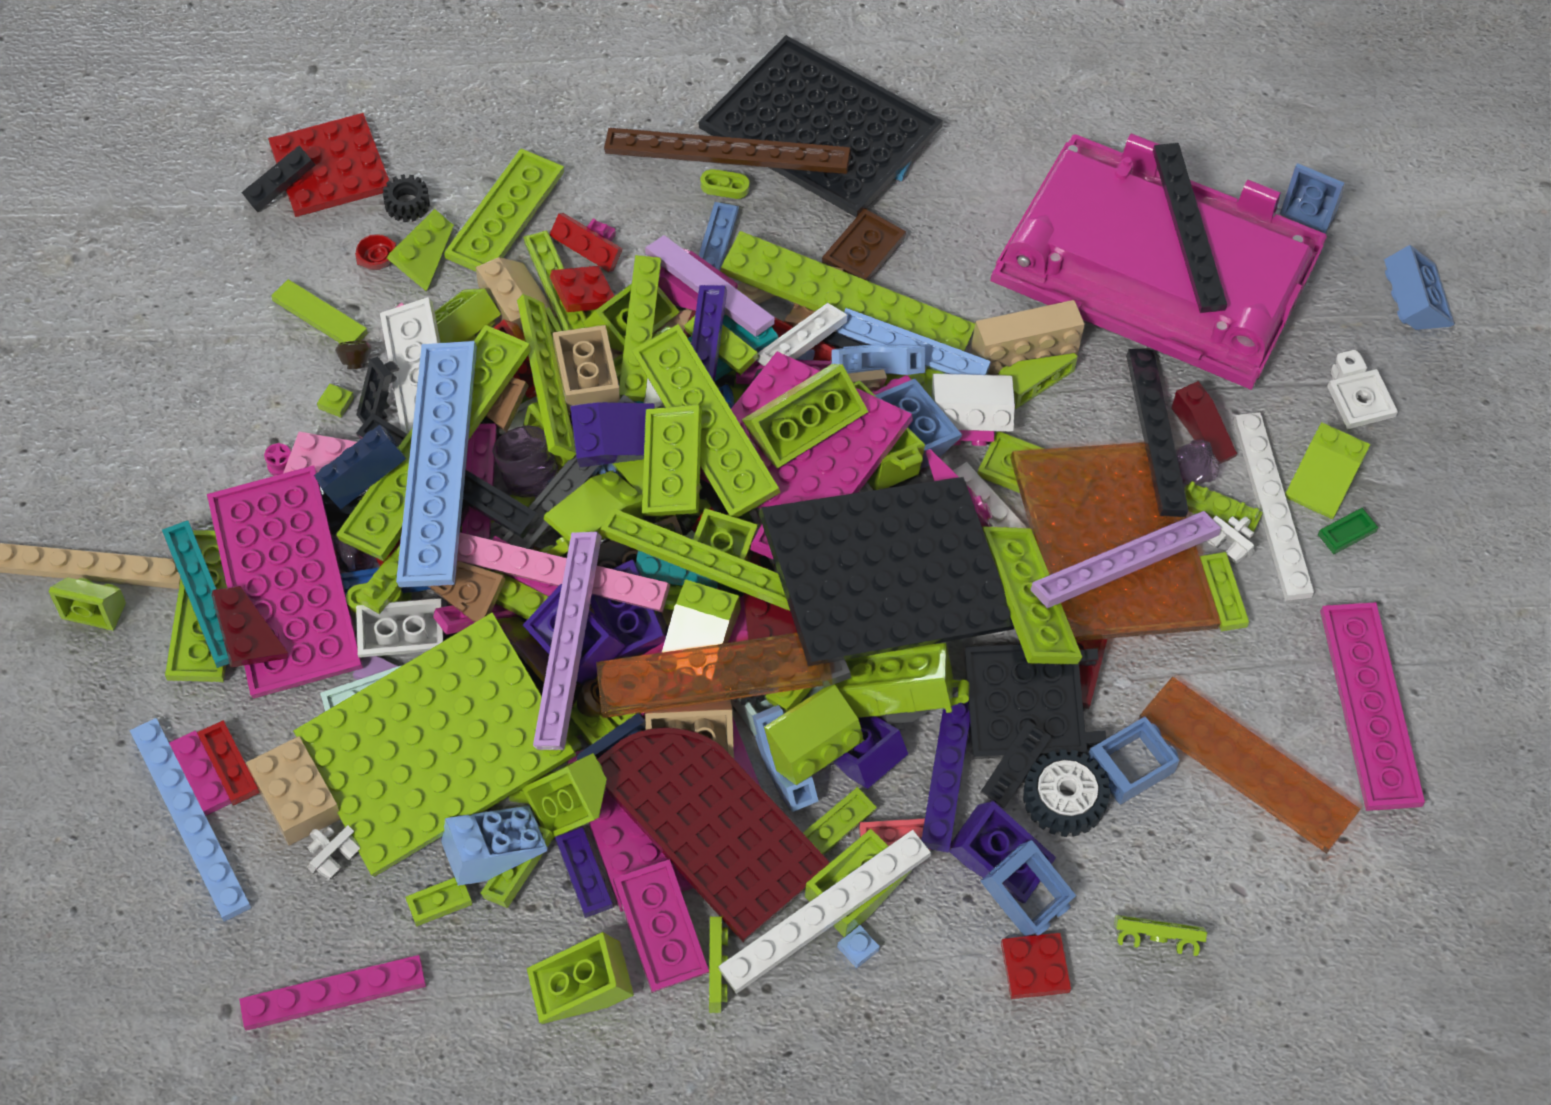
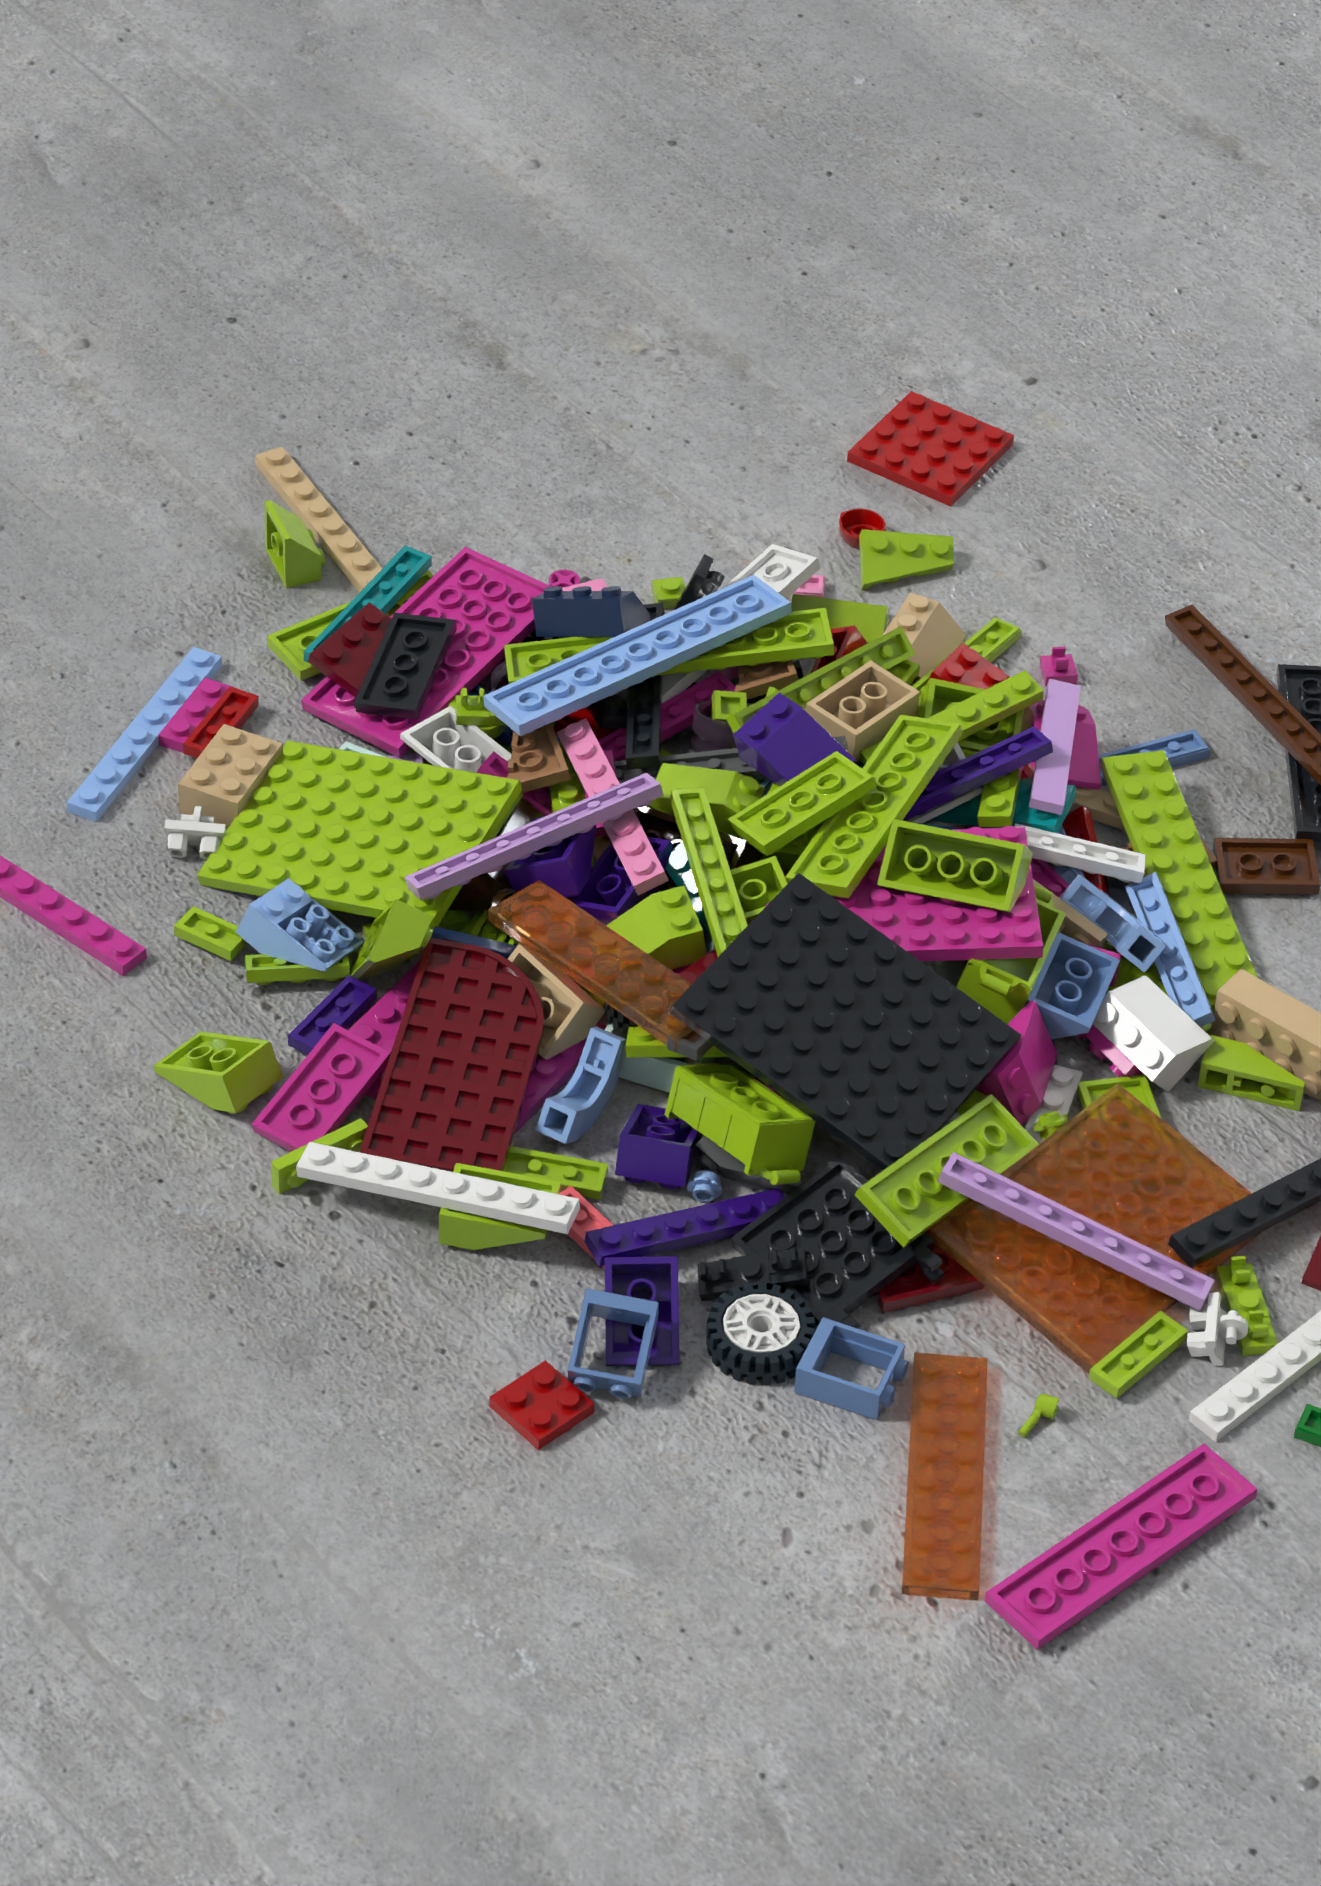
camera: 55 degrees right, 15 degrees down
(278, 178) = (869, 418): black plate -> none
(293, 608) = (405, 666): none -> black plate
(318, 313) = (751, 524): lime tile -> none
(353, 353) = (727, 566): dark brown cone -> none
(407, 209) = (959, 512): black tyre -> none
(505, 210) = (1014, 588): lime plate -> none
(514, 441) = (727, 703): none -> lime plate
(586, 242) = (1036, 652): red plate -> none
(724, 184) = (1224, 724): lime plate -> none
(813, 734) = (618, 1078): lime slope -> none
(858, 946) = (438, 1257): light blue plate -> none
(913, 740) = (705, 1186): none -> light blue plate
(1014, 510) = (1049, 1123): none -> lime plate
(1160, 932) = (667, 1482): lime plate -> none
(1197, 462) = (1278, 1254): clear purple hair -> none
(1229, 673) = (1044, 1406): none -> lime hand

